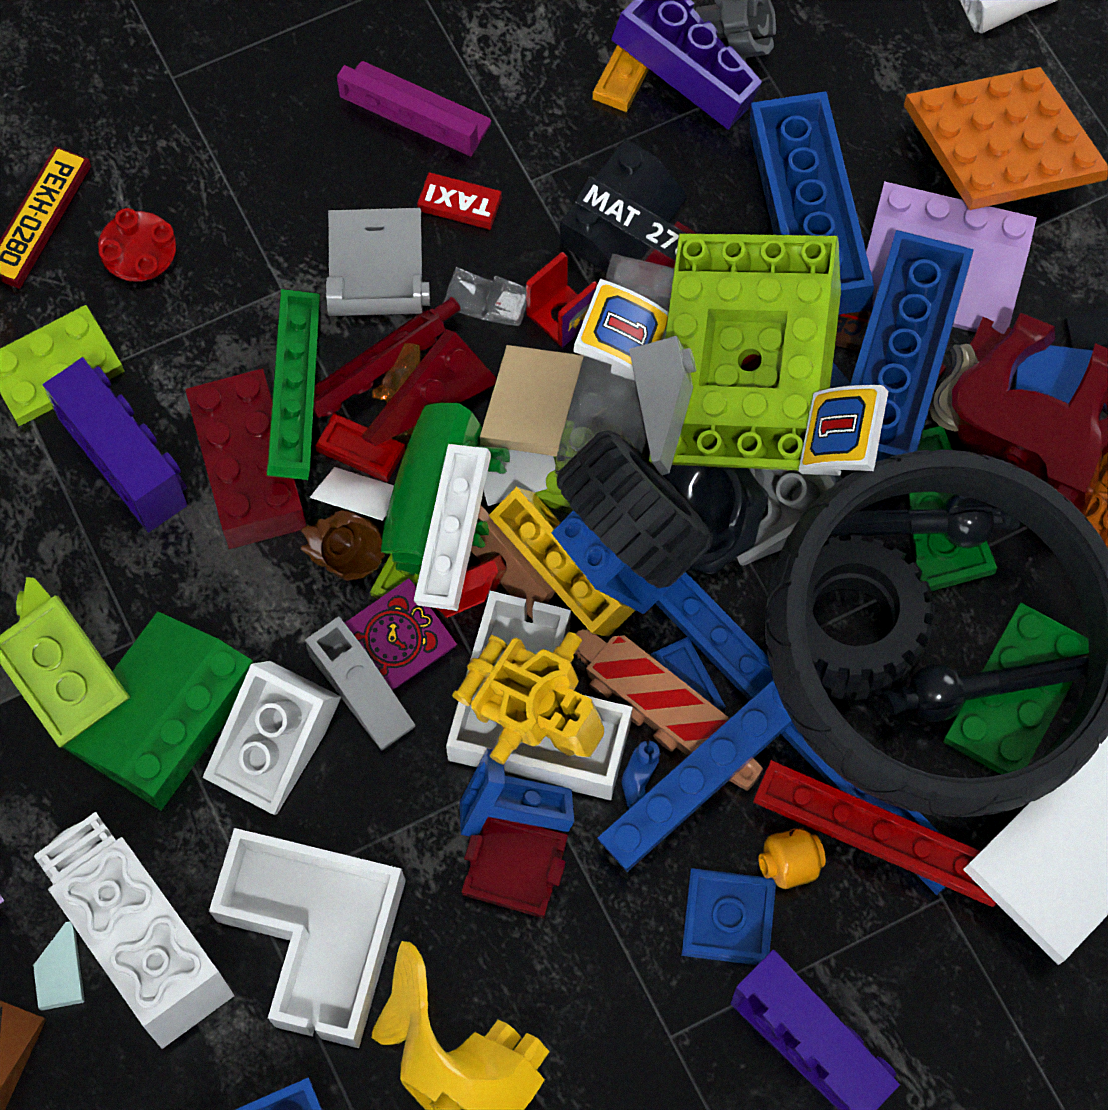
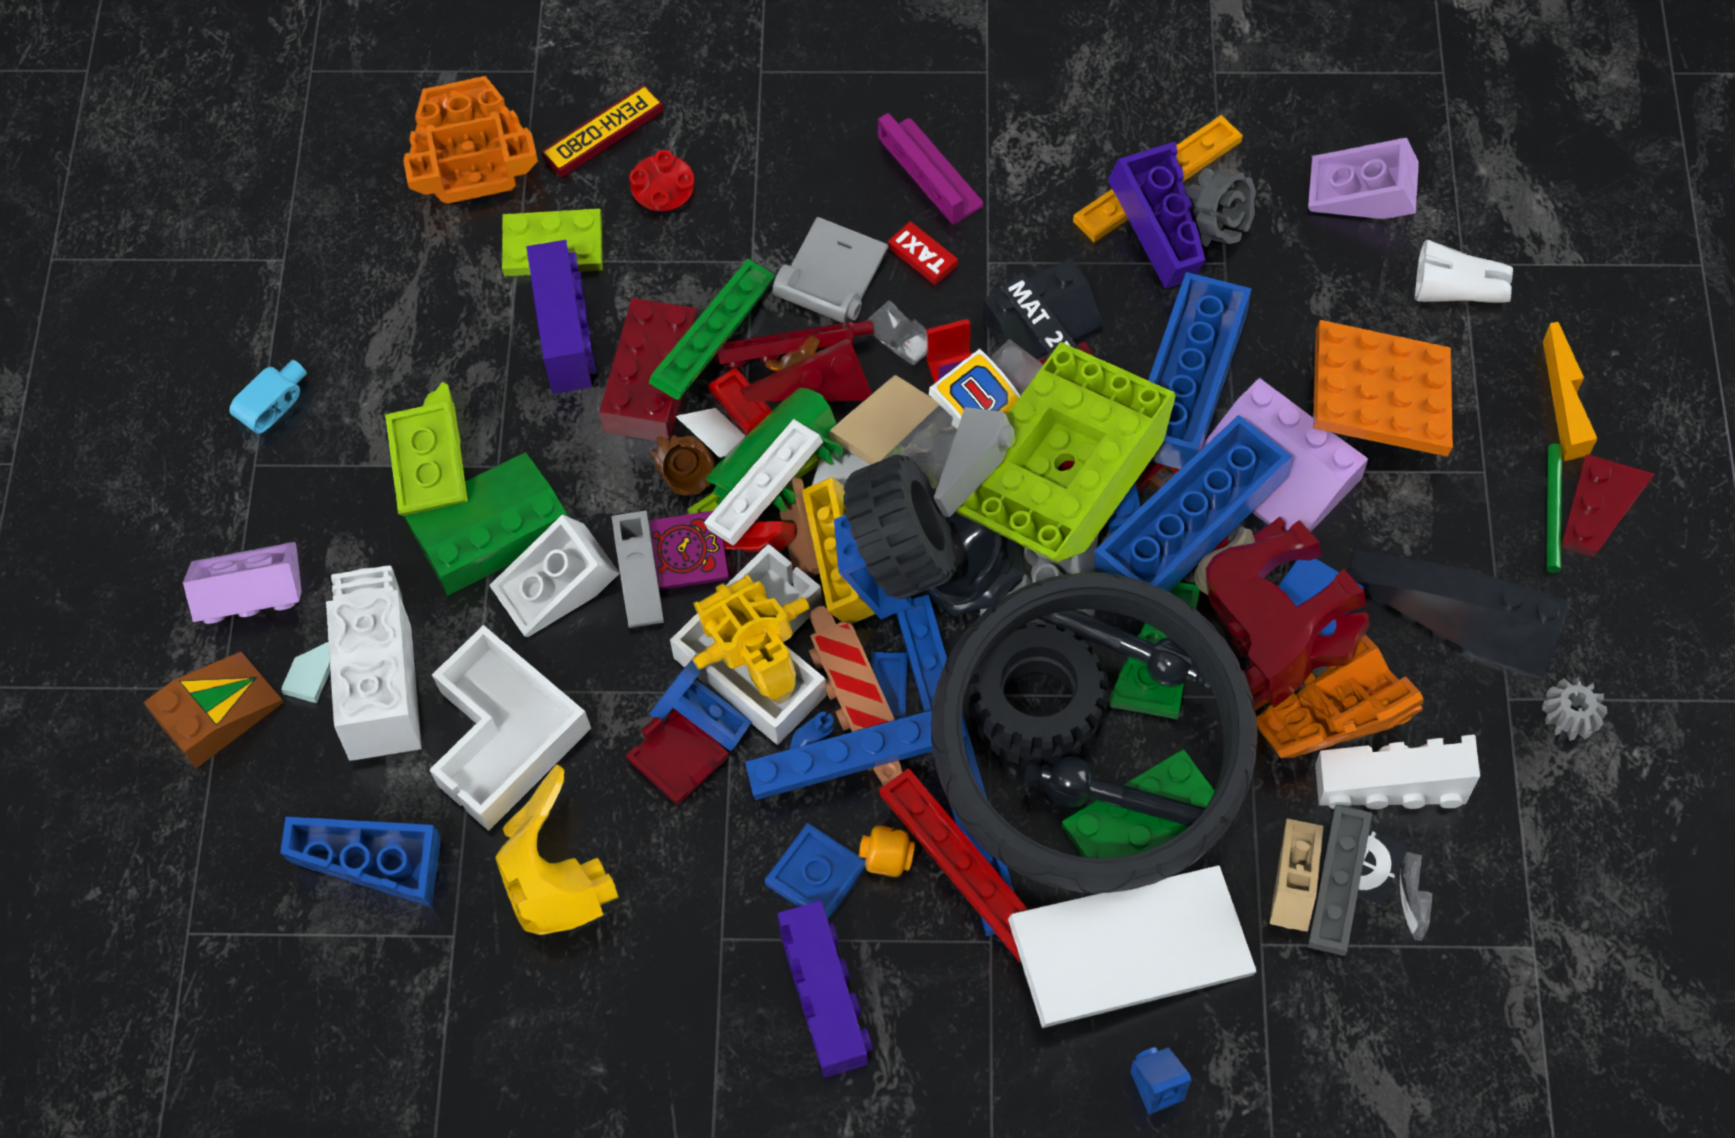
camera: 30 degrees right, 5 degrees down
(843, 429) = (1090, 537): slope -> none

